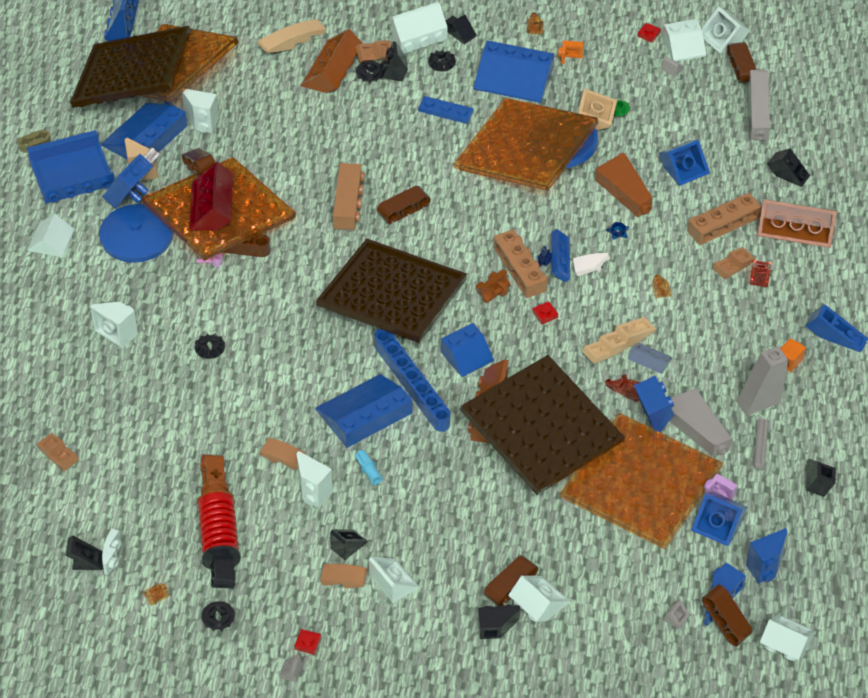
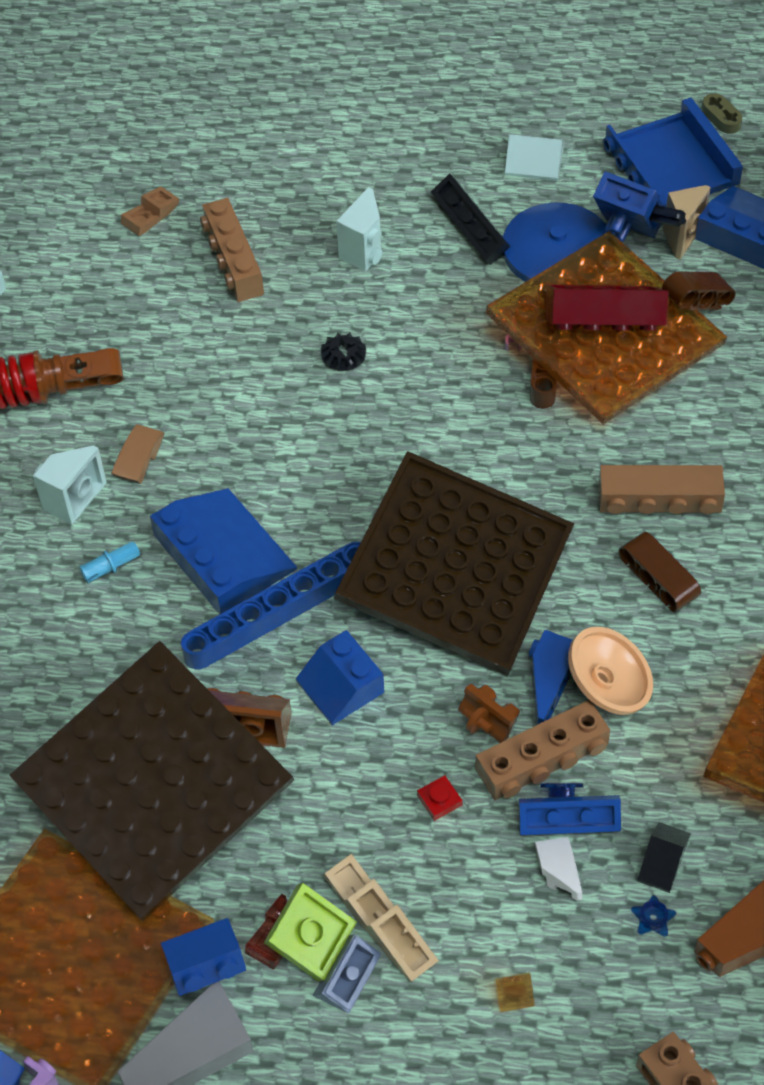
camera: 90 degrees right, 5 degrees up
(106, 272) = (470, 219): none -> black plate
(111, 399) = (232, 250): none -> medium nougat brick
(473, 257) = (549, 672): none -> blue slope
(474, 228) = (610, 670): none -> light nougat dish
(584, 219) = (663, 857): none -> black slope
(631, 365) = (310, 932): none -> lime plate

